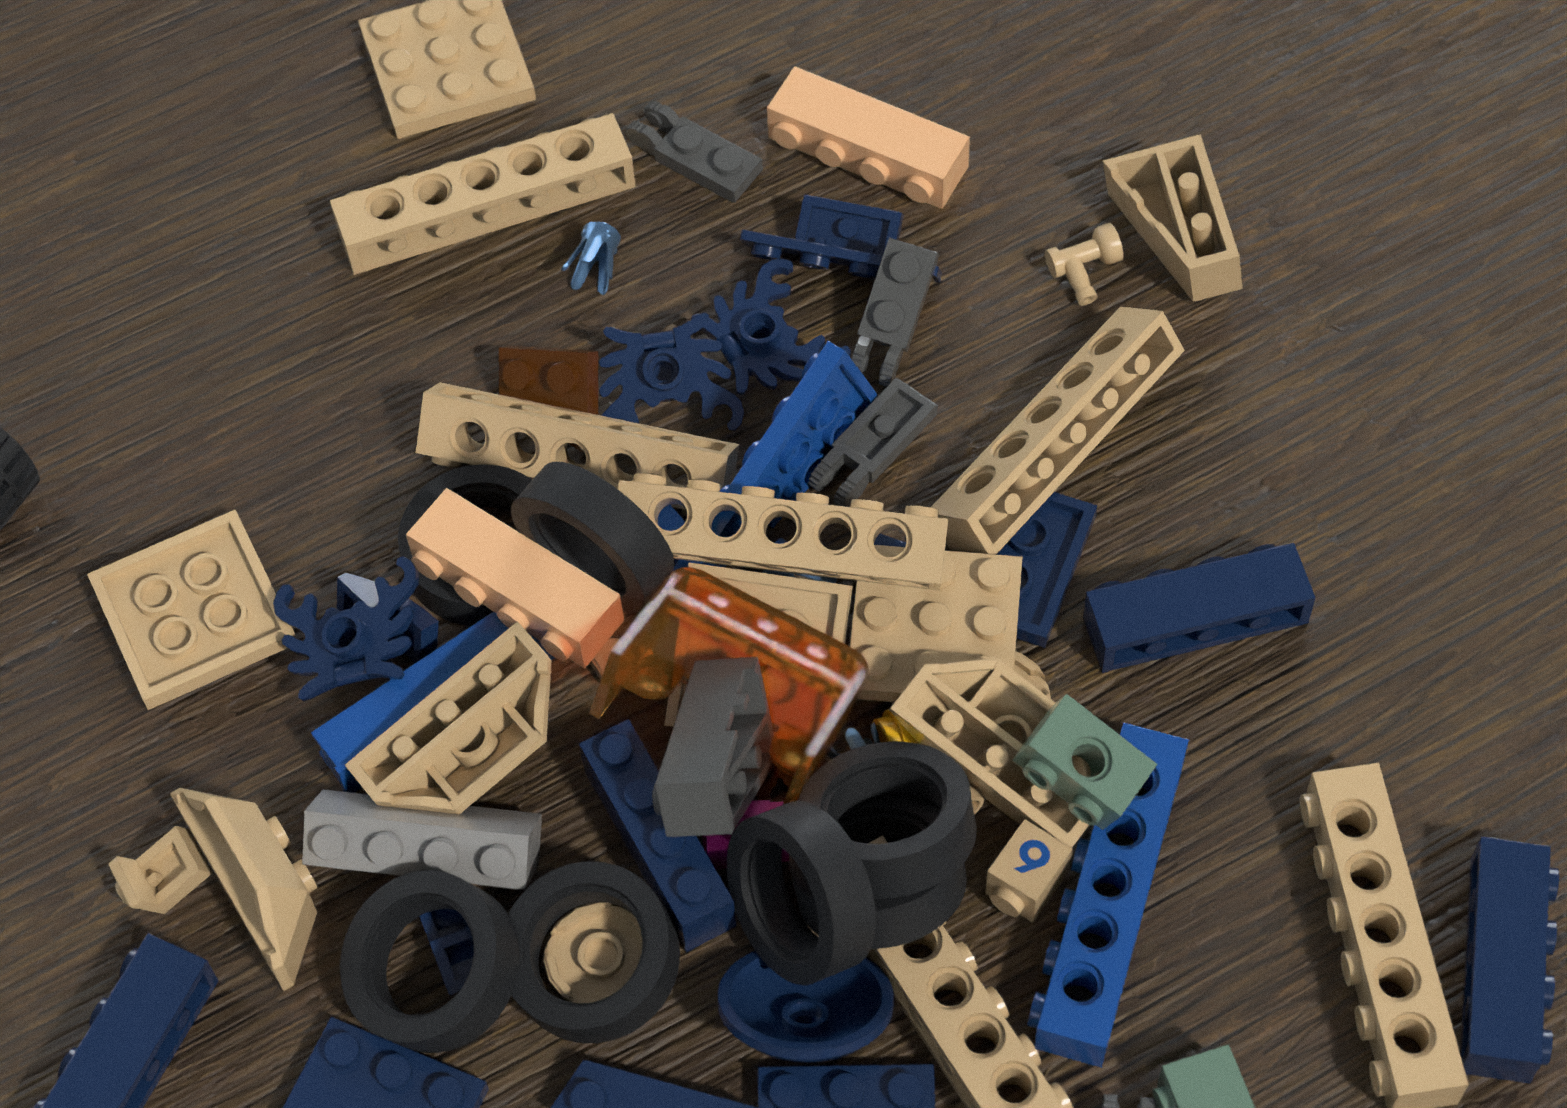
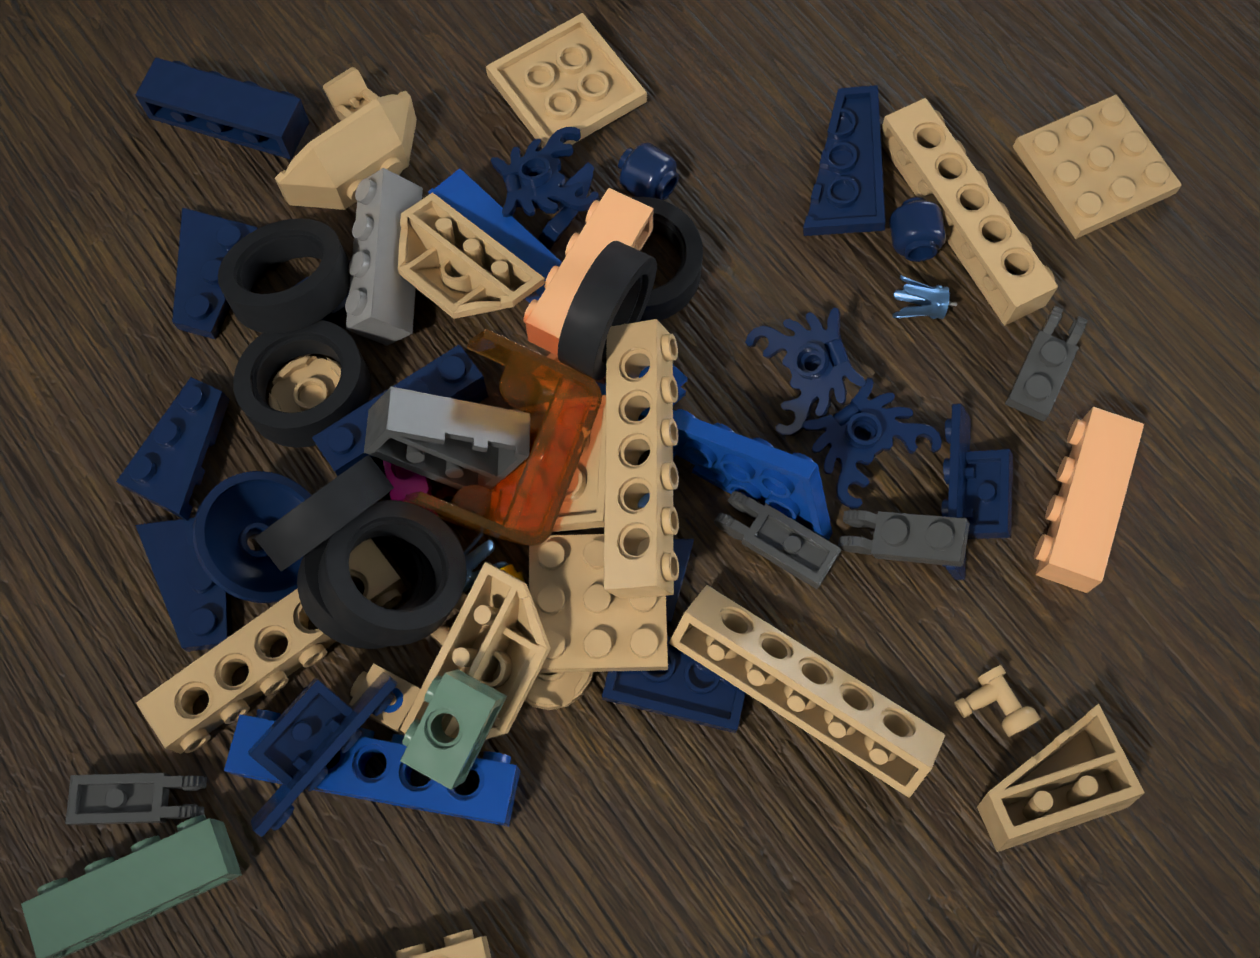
camera: 80 degrees right, 10 degrees up
(357, 521) = (648, 172): none -> dark blue head
(403, 303) = (850, 173): none -> dark blue wing
(446, 438) = (729, 309): tan brick -> none
(501, 243) = (917, 229): none -> dark blue head
(550, 377) = (784, 288): reddish brown wing -> none
(1086, 926) = (307, 739): none -> dark blue bracket
(1198, 606) = (649, 829): dark blue brick -> none

